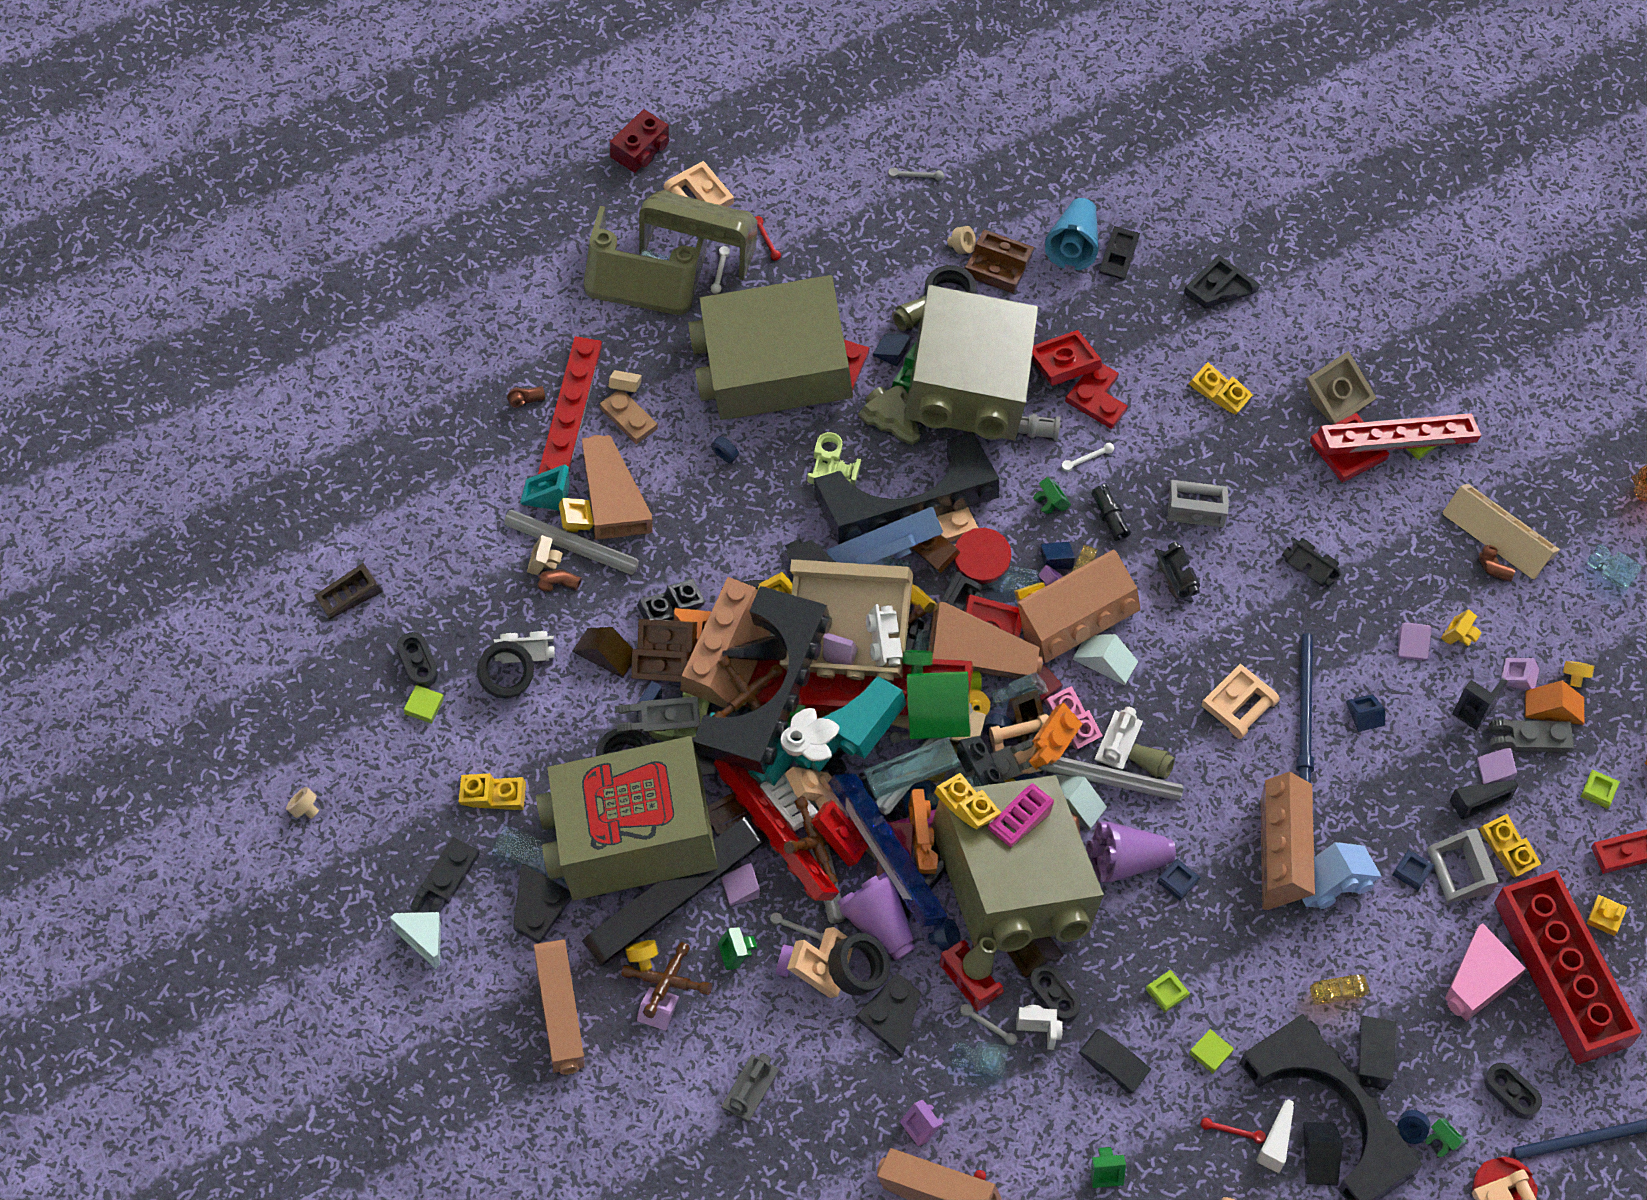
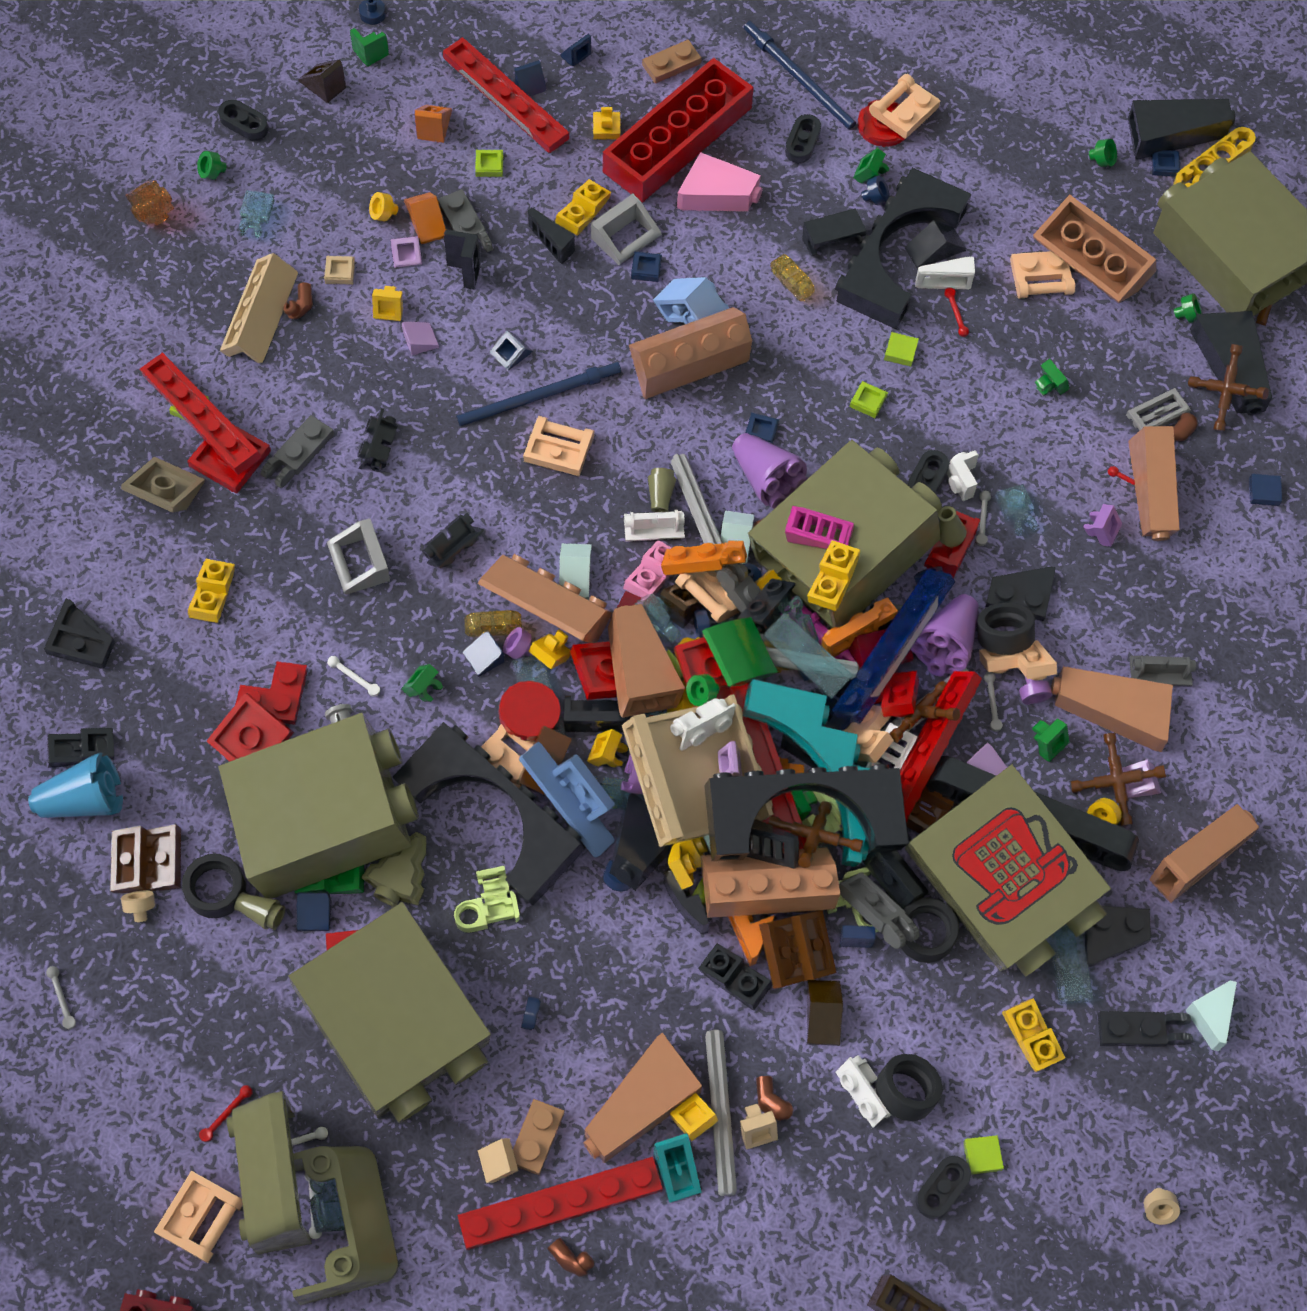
camera: 115 degrees left, 5 degrees up
(734, 1025) = (1118, 703): none -> nougat slope
(812, 733) = (837, 740): white plate -> none
(1111, 512) = (411, 627): black pin -> none
(1115, 1059) = (957, 411): black slope -> none
(1332, 502) = (298, 450): none -> dark grey hinge
(1497, 766) = (512, 236): lavender slope -> none
(1520, 611) = (339, 270): none -> tan tile

